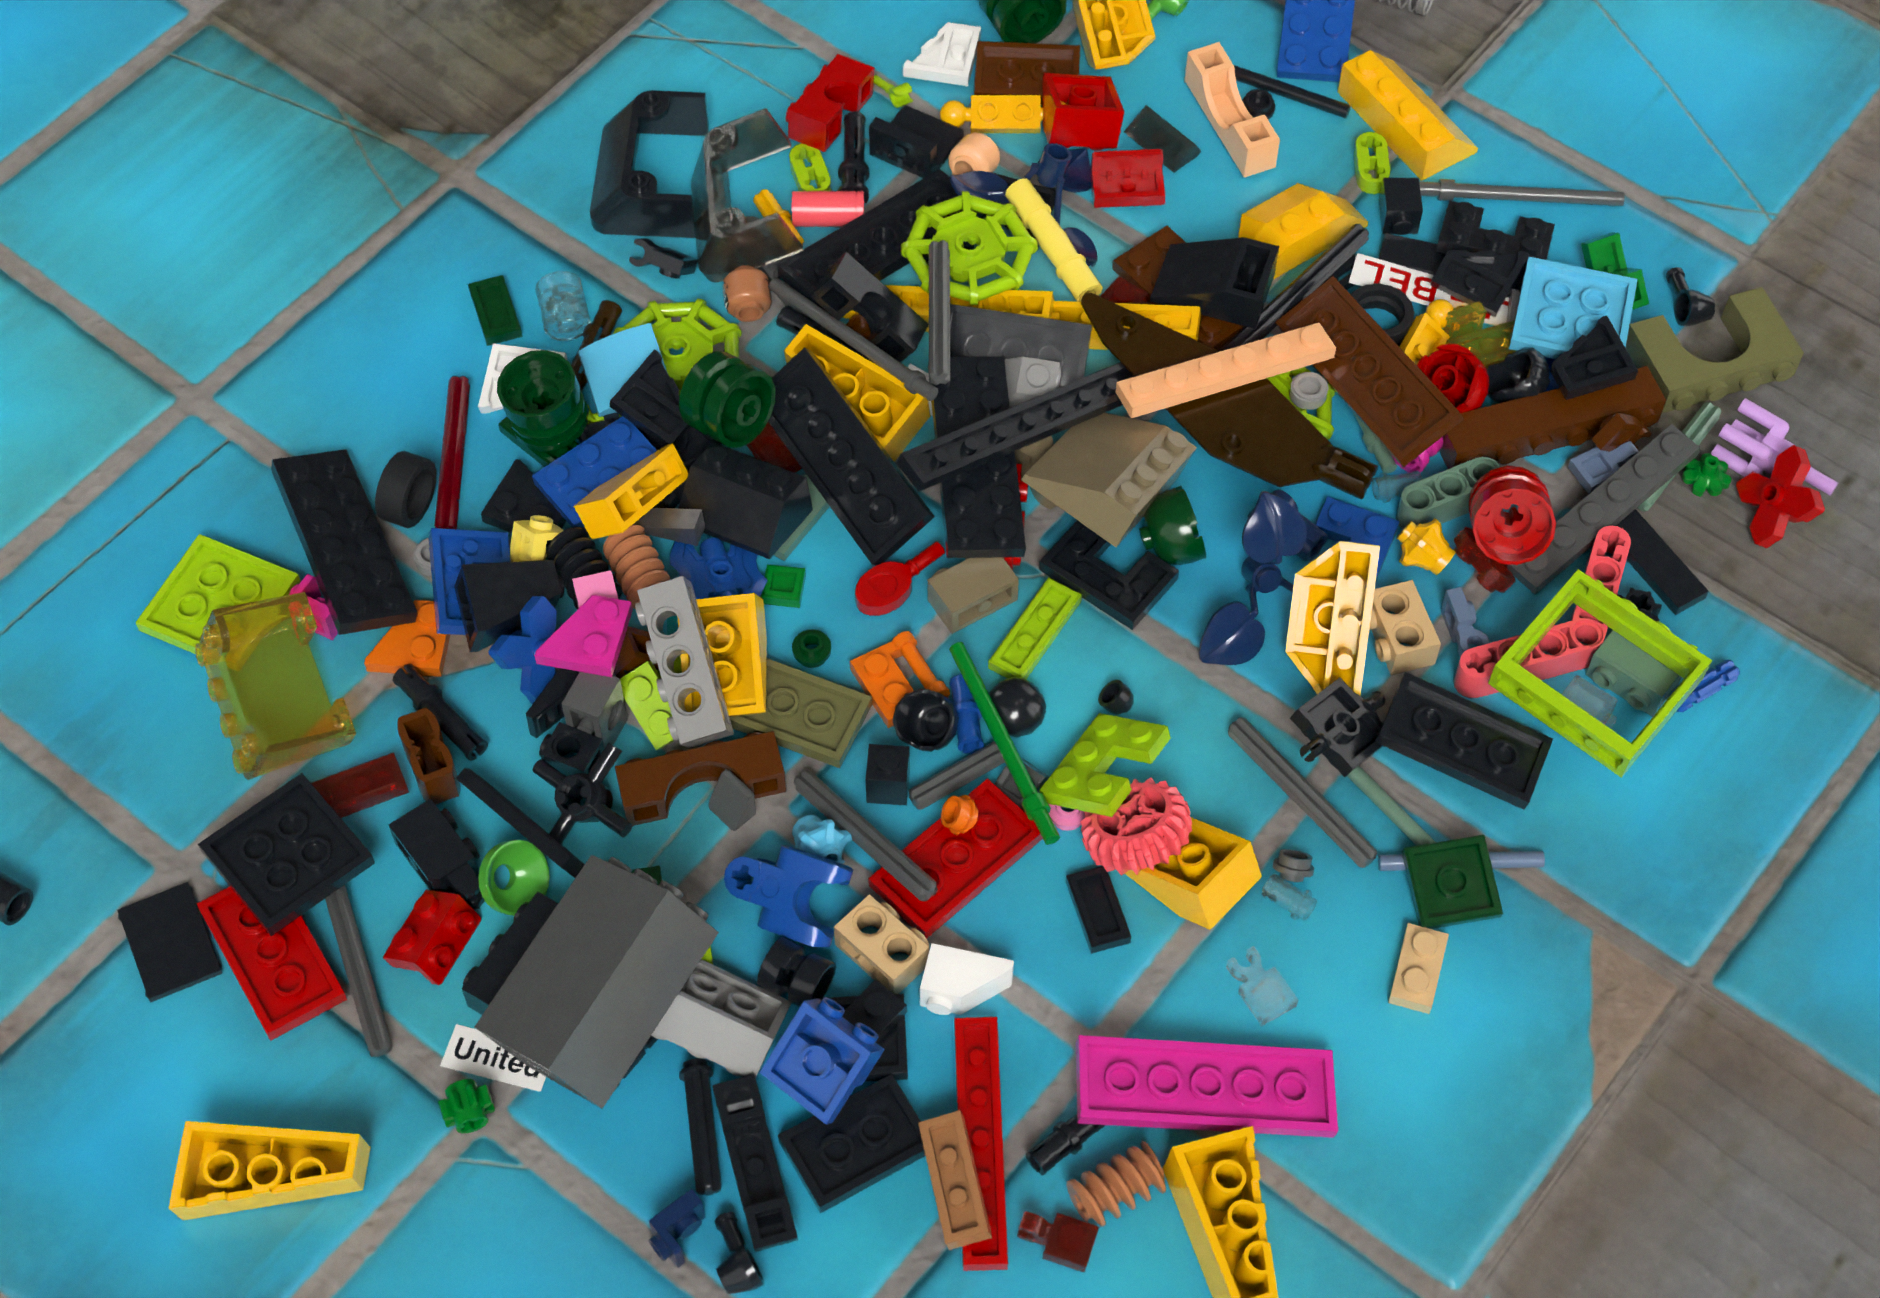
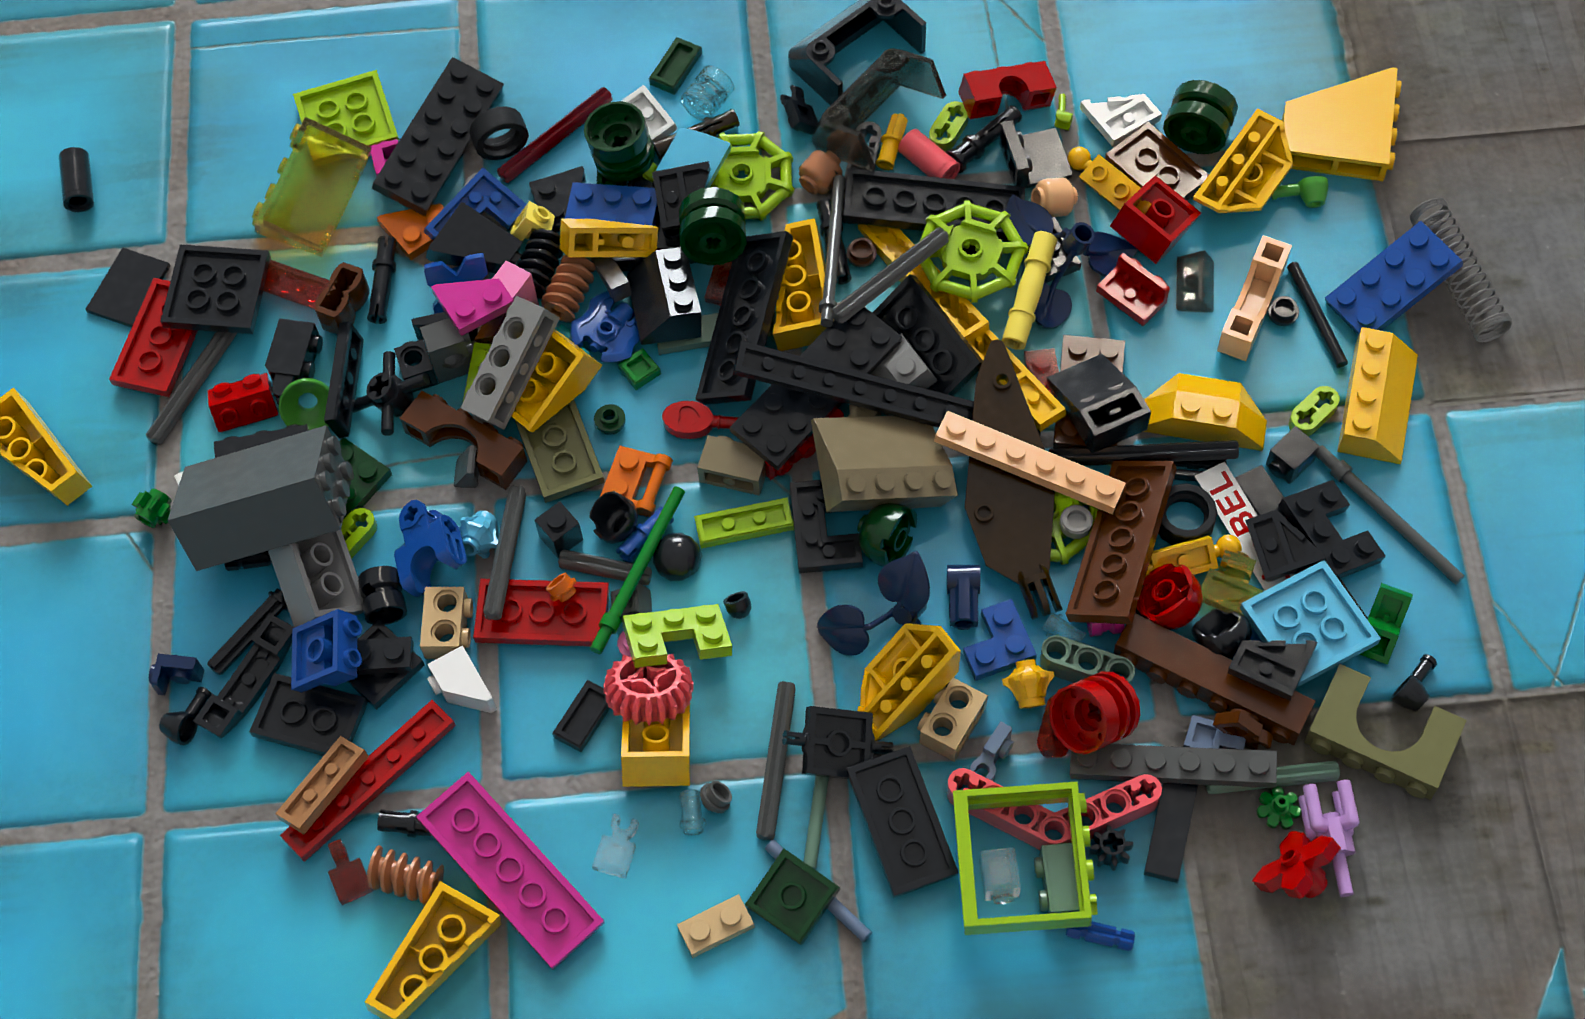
camera: 50 degrees right, 5 degrees up
(891, 322) = (863, 216): black arch -> none

